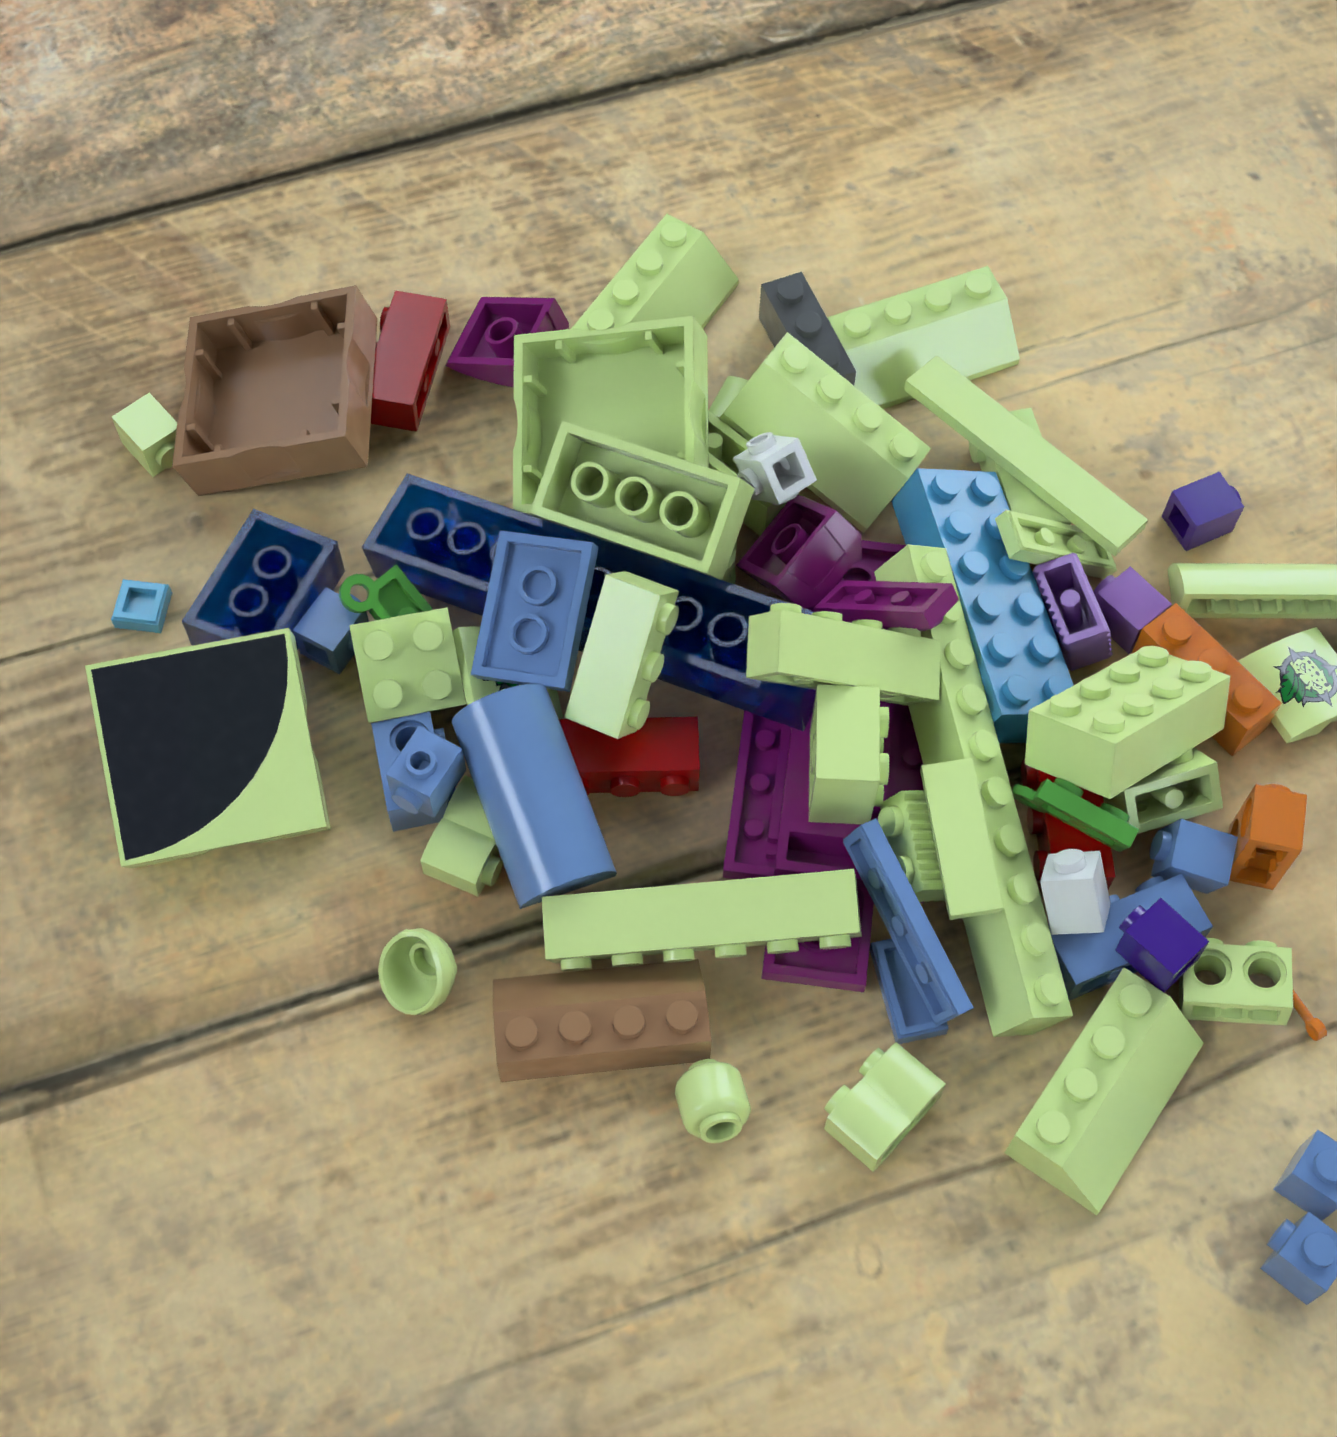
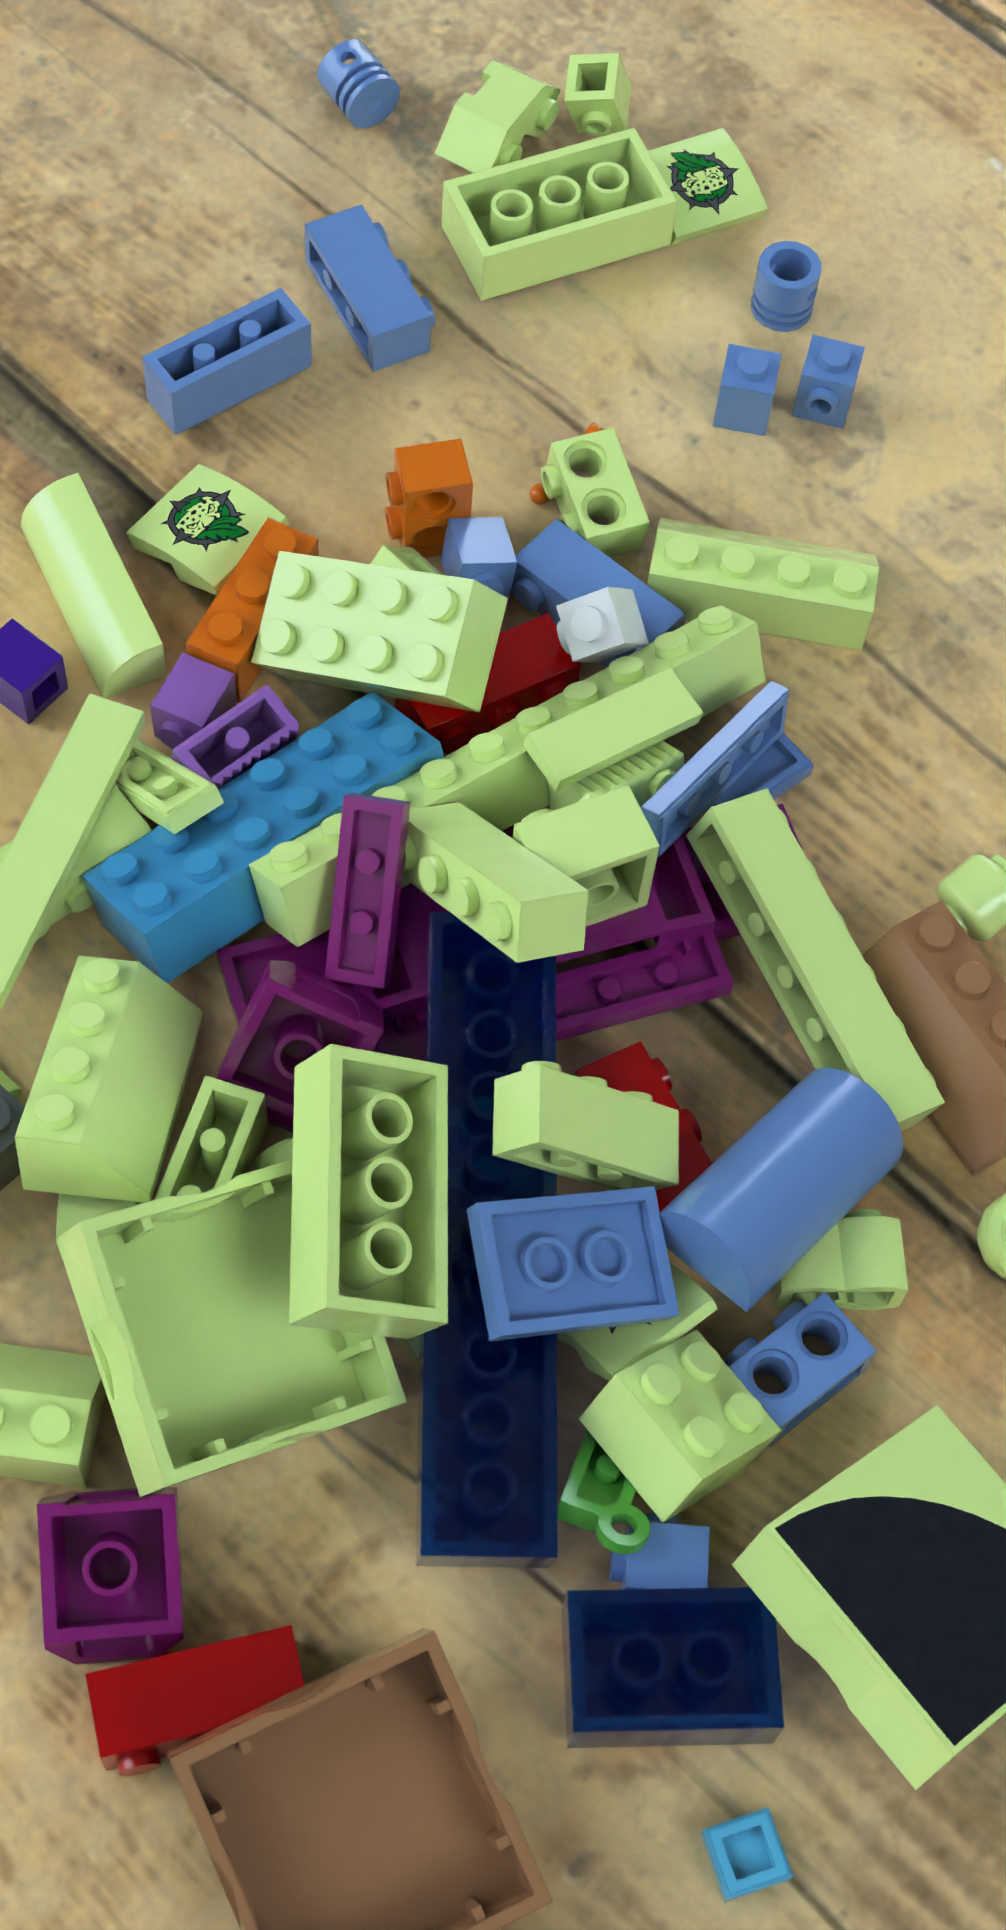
camera: 120 degrees left, 0 degrees up
(425, 773) = (825, 1310): medium blue brick -> none
(775, 468) = (231, 1079): white brick -> none
(882, 1105) = (892, 749): yellowish green brick -> none
(1065, 803) = (515, 647): bright green hinge -> none
(1160, 944) = (617, 539): dark purple brick -> none

